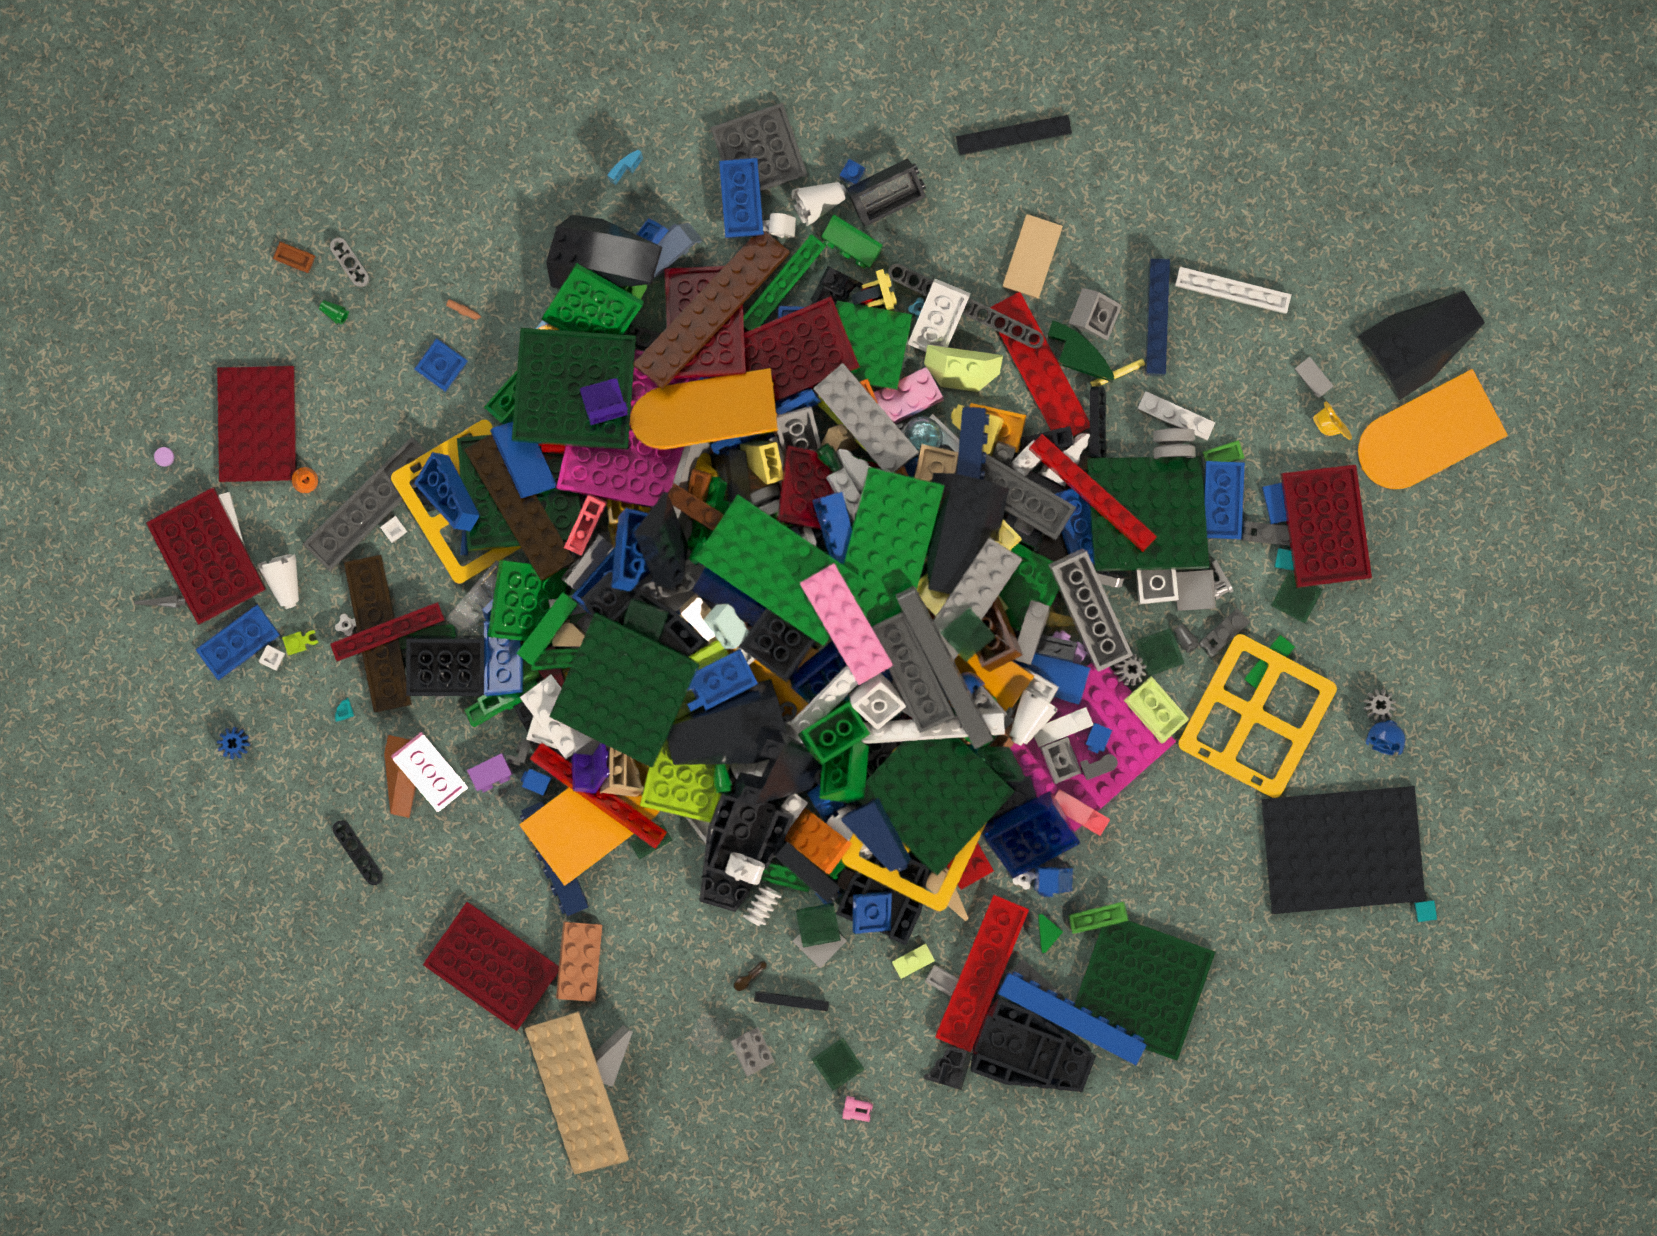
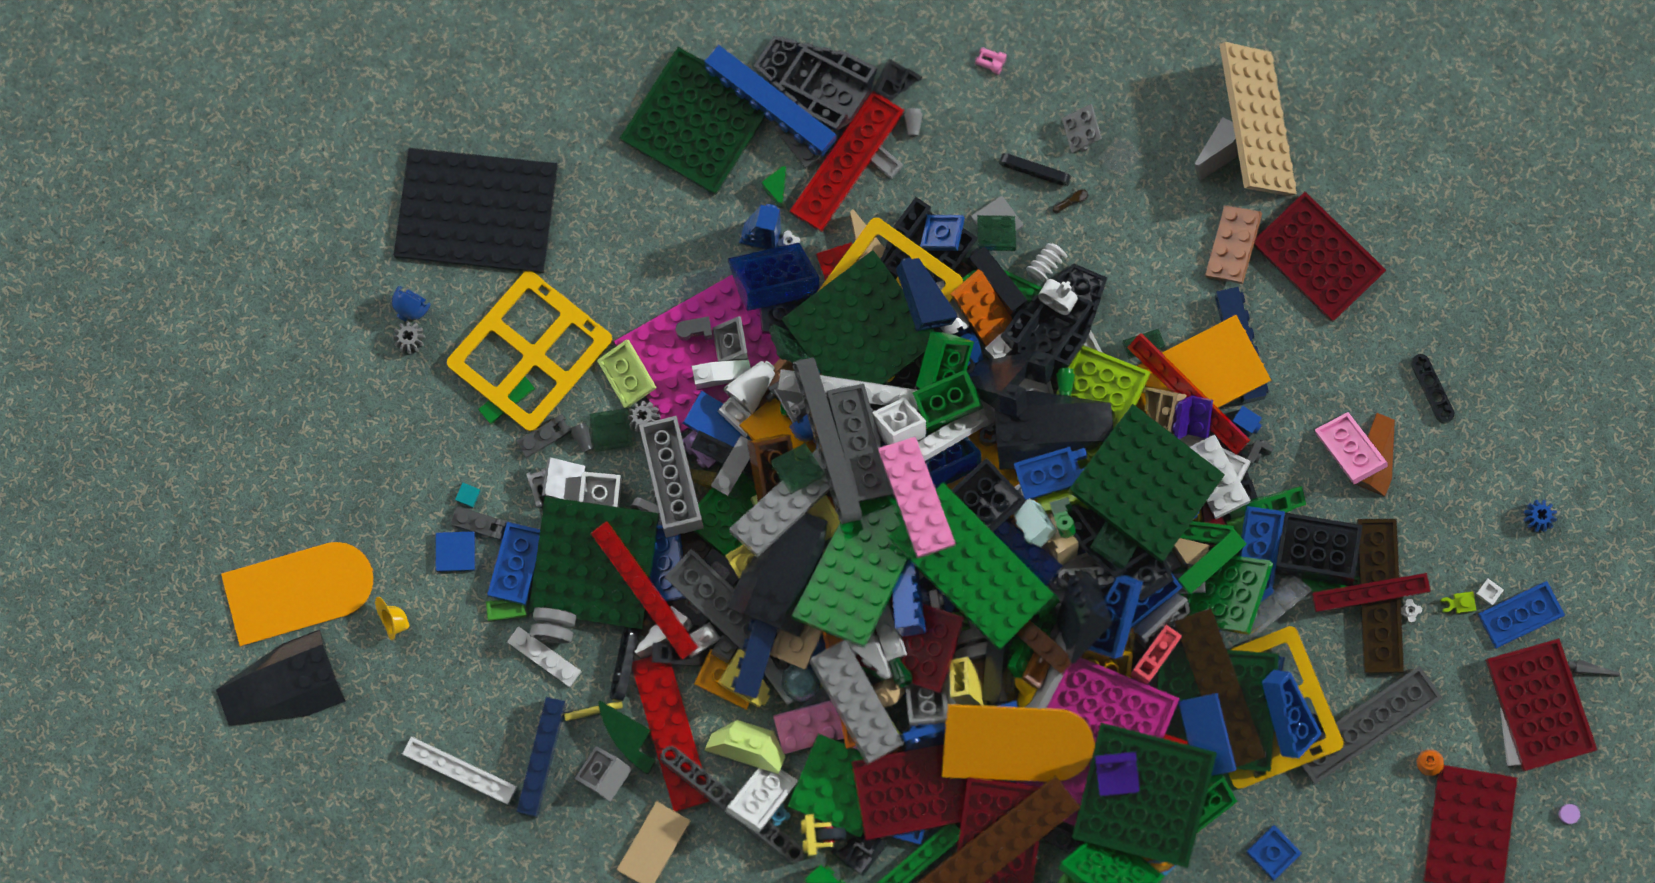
camera: 170 degrees left, 10 degrees down
(282, 579) = (1468, 667): white cone -> none
(344, 711) = (1425, 527): teal tile -> none
(393, 529) = (1348, 695): white plate -> none
(490, 772) = (1290, 439): medium lavender piece -> none
(701, 635) = (1064, 523): none -> green leg
(838, 1064) = (1001, 105): clear green plate -> none
(913, 961) = (910, 185): yellowish green tile -> none
(923, 1028) = (913, 121): none -> light grey cone
(1082, 813) = (720, 288): coral slope -> none
(1098, 738) = (689, 355): blue brick -> none
(1098, 917) = (724, 190): bright green tile -> none
(1296, 601) = (465, 455): clear green plate -> none
(1313, 377) = (399, 668): light grey tile -> none
(1326, 526) = (420, 518): dark red plate -> none
(1425, 911) = (410, 138): teal tile -> none

